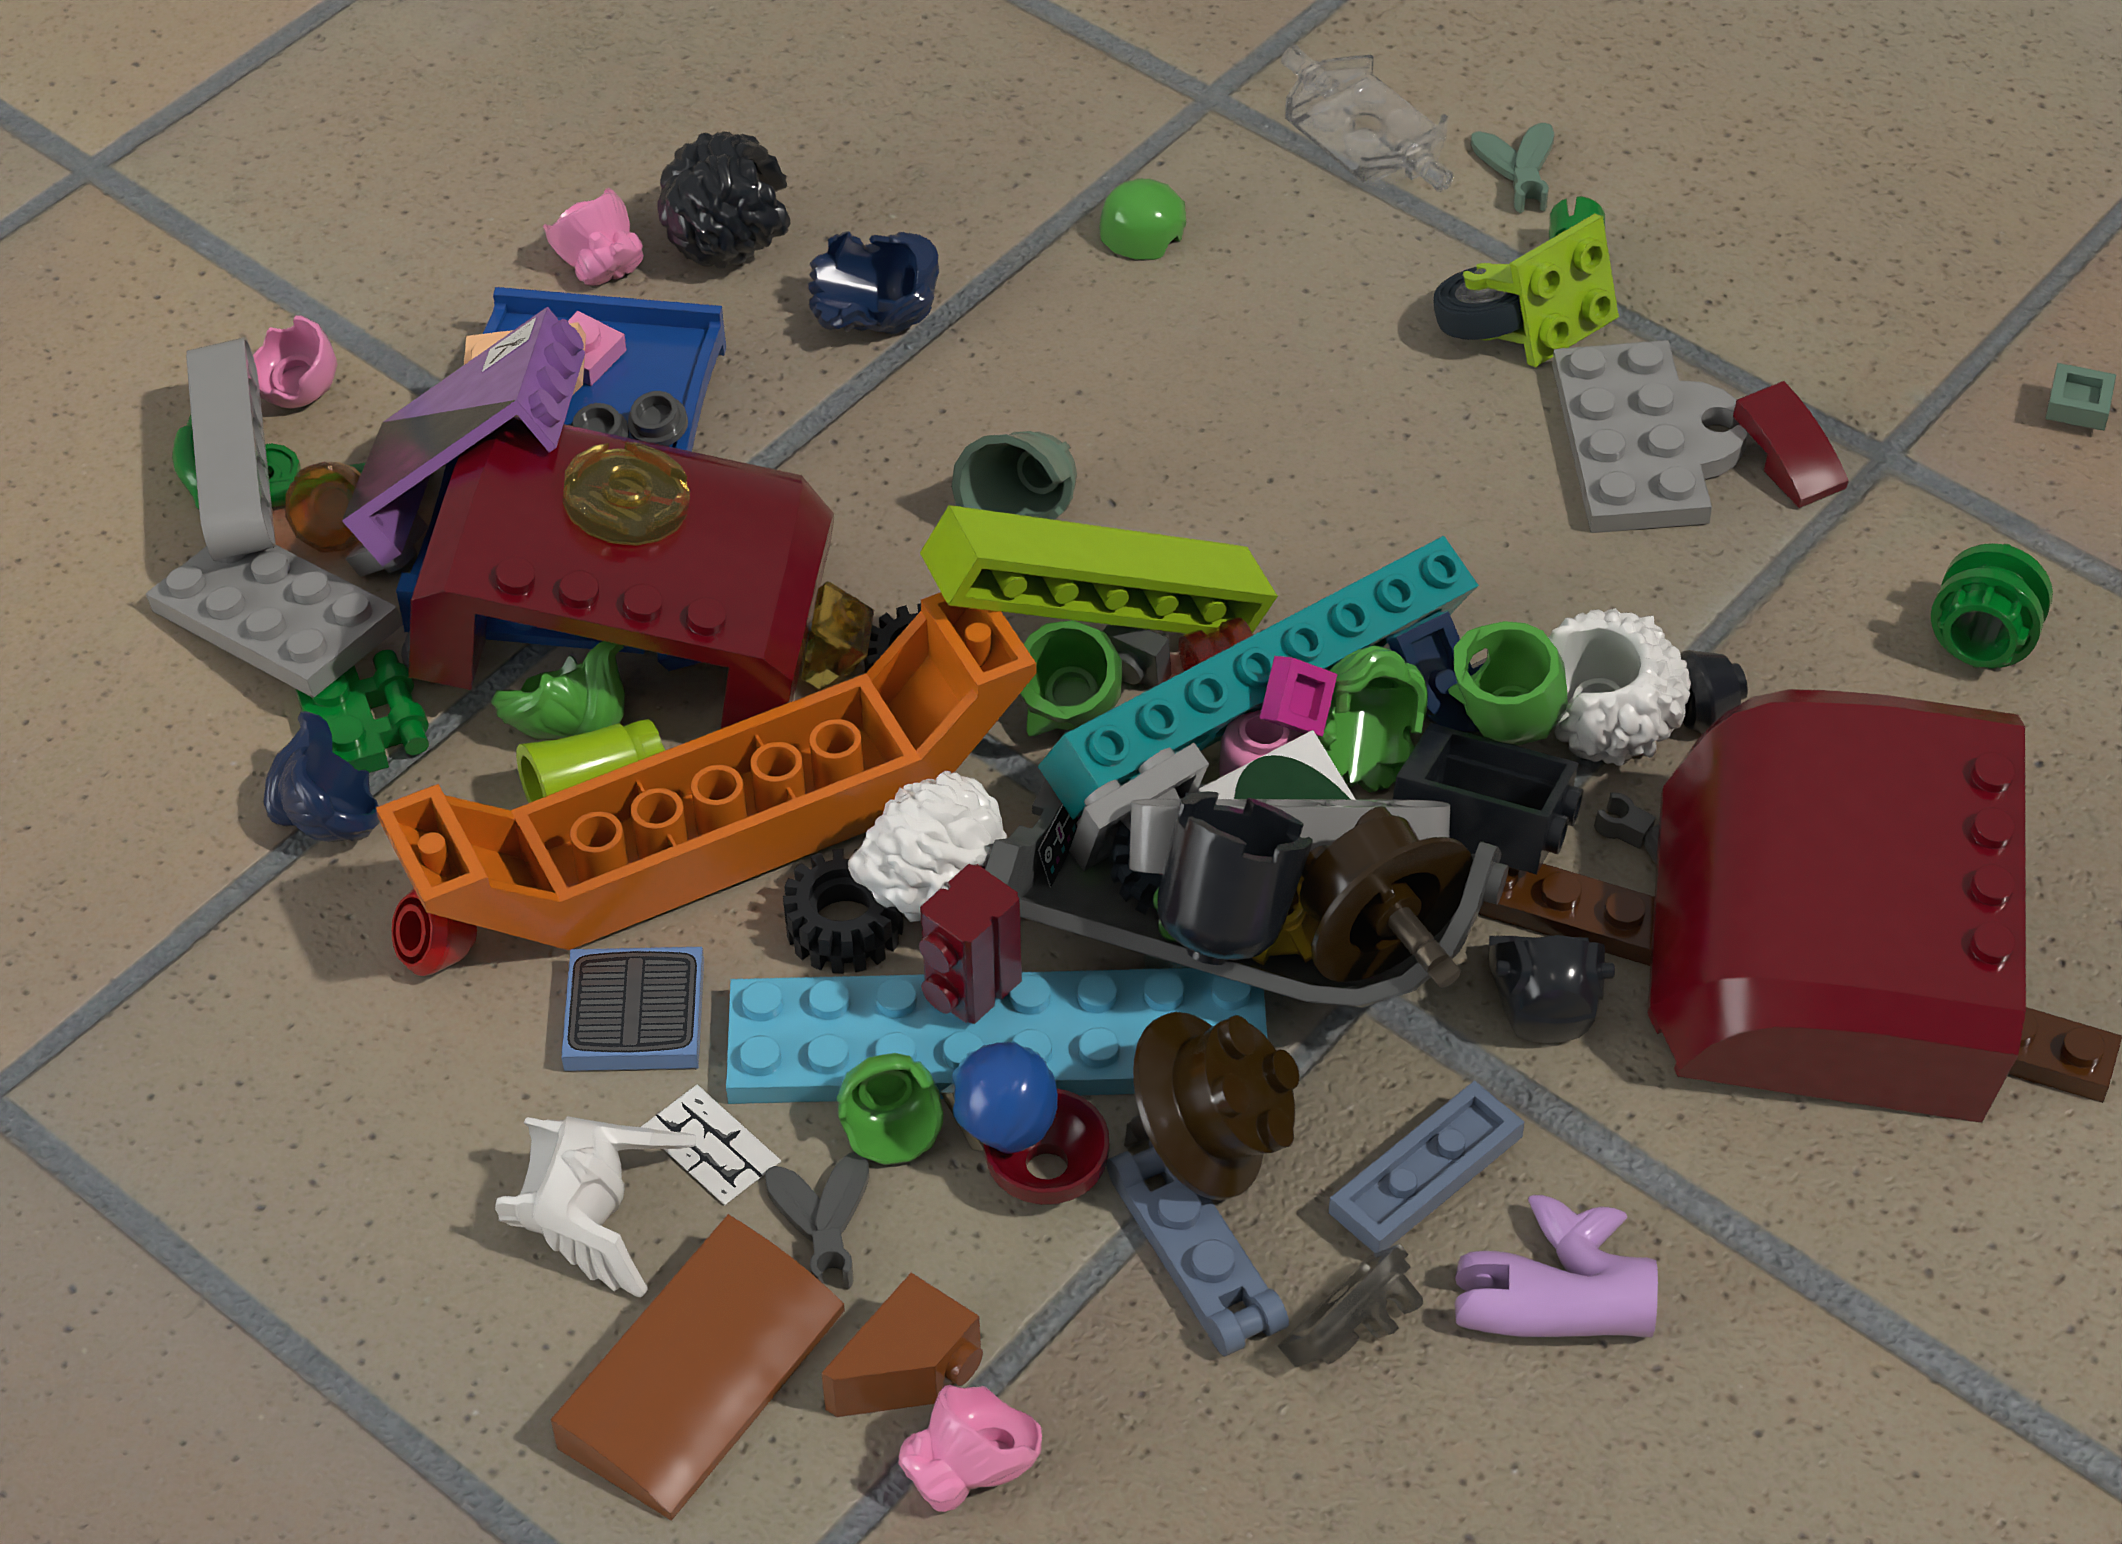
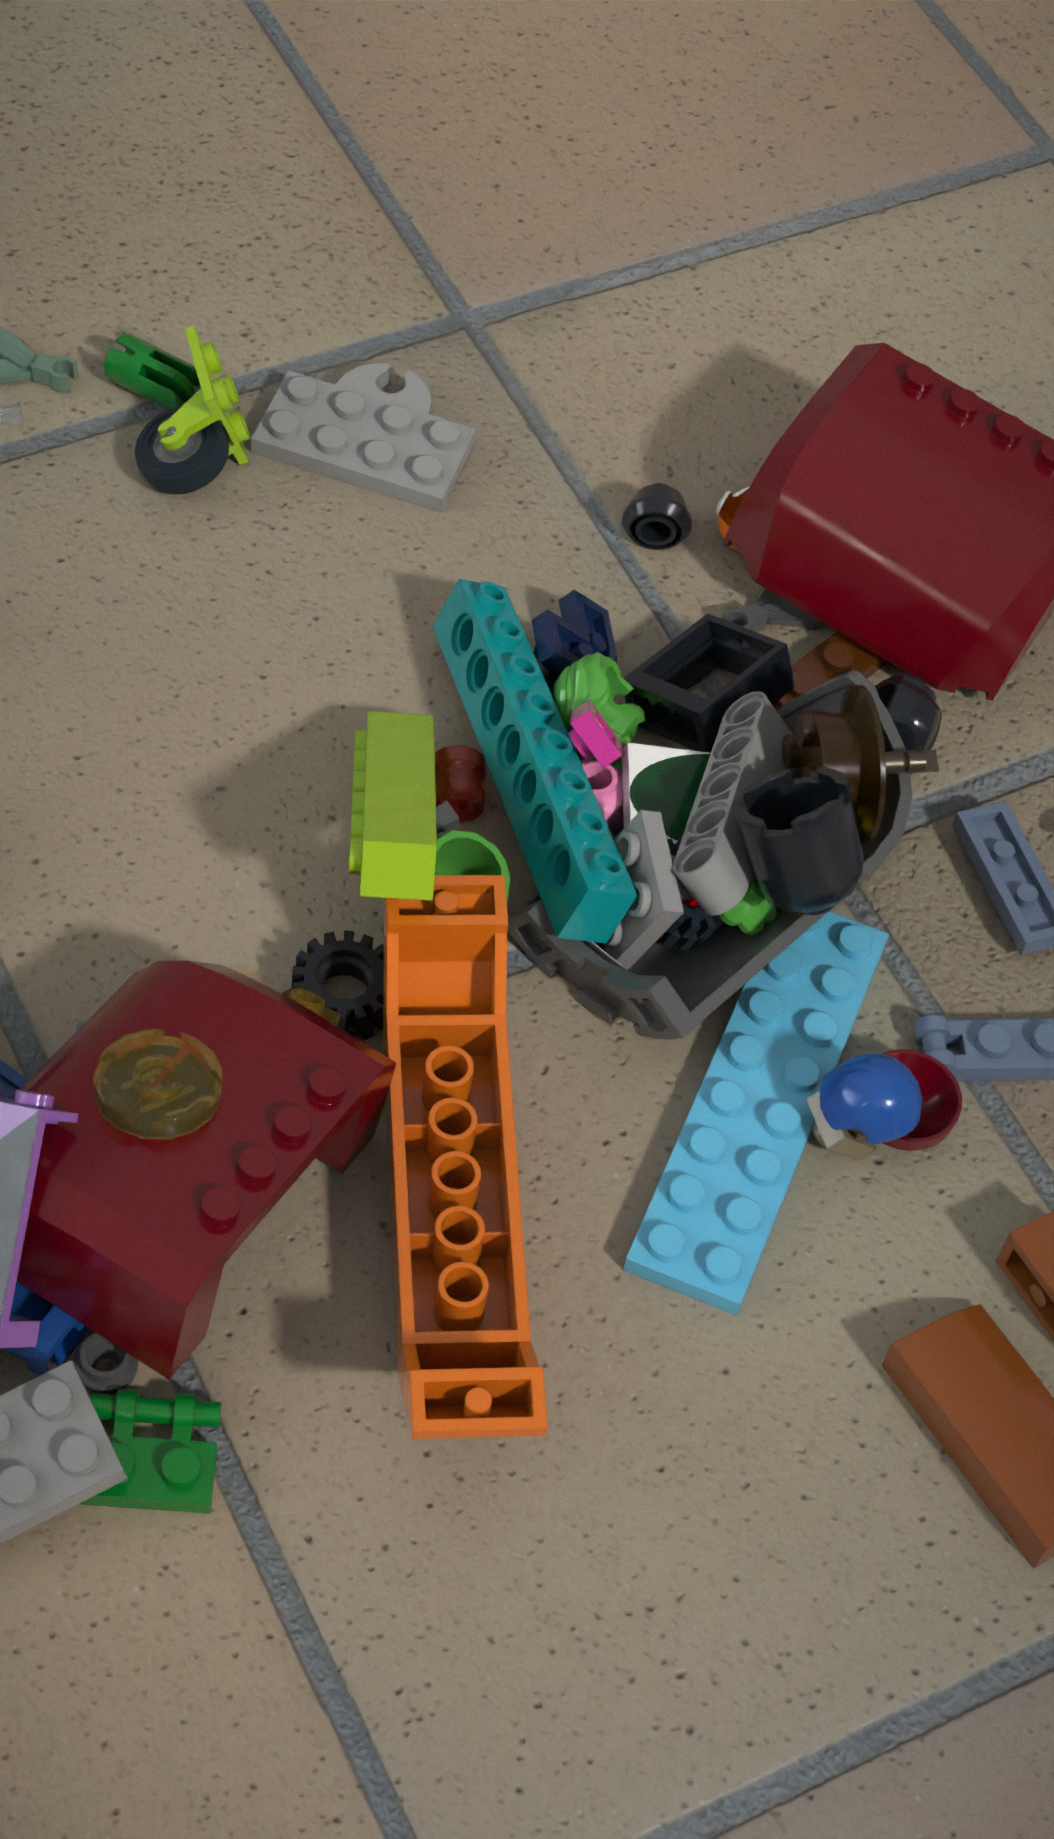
camera: 75 degrees left, 5 degrees up
(318, 788) = (248, 1512): dark blue hair -> none
(426, 940) = (468, 1475): red cone -> none
(568, 699) = (256, 1273): bright green hair -> none
(568, 761) = (341, 1282): lime plant -> none
(576, 1187) = (812, 1448): white helmet -> none
(633, 1008) = (614, 1346): tile -> none
(725, 1152) = (774, 1343): white sticker -> none
(826, 1217) = (889, 1285): dark grey piece -> none
(832, 939) = (596, 1119): black tyre -> none
(890, 1109) = (823, 1190): bright green hair -> none
(926, 841) = (593, 1047): white hair -> none
(971, 944) = (733, 1054): dark red brick -> none
(1016, 475) = (189, 822): sand green helmet -> none
(1212, 1100) = (941, 962): dark brown piece -> none
(1519, 687) = (634, 608): bright green piece -> none
(1620, 685) = (644, 559): white hair -> none
(1796, 446) = (431, 350): dark red slope -> none
(1991, 605) = (673, 328): green piece -> none
(2080, 396) = (489, 189): sand green plate -> none

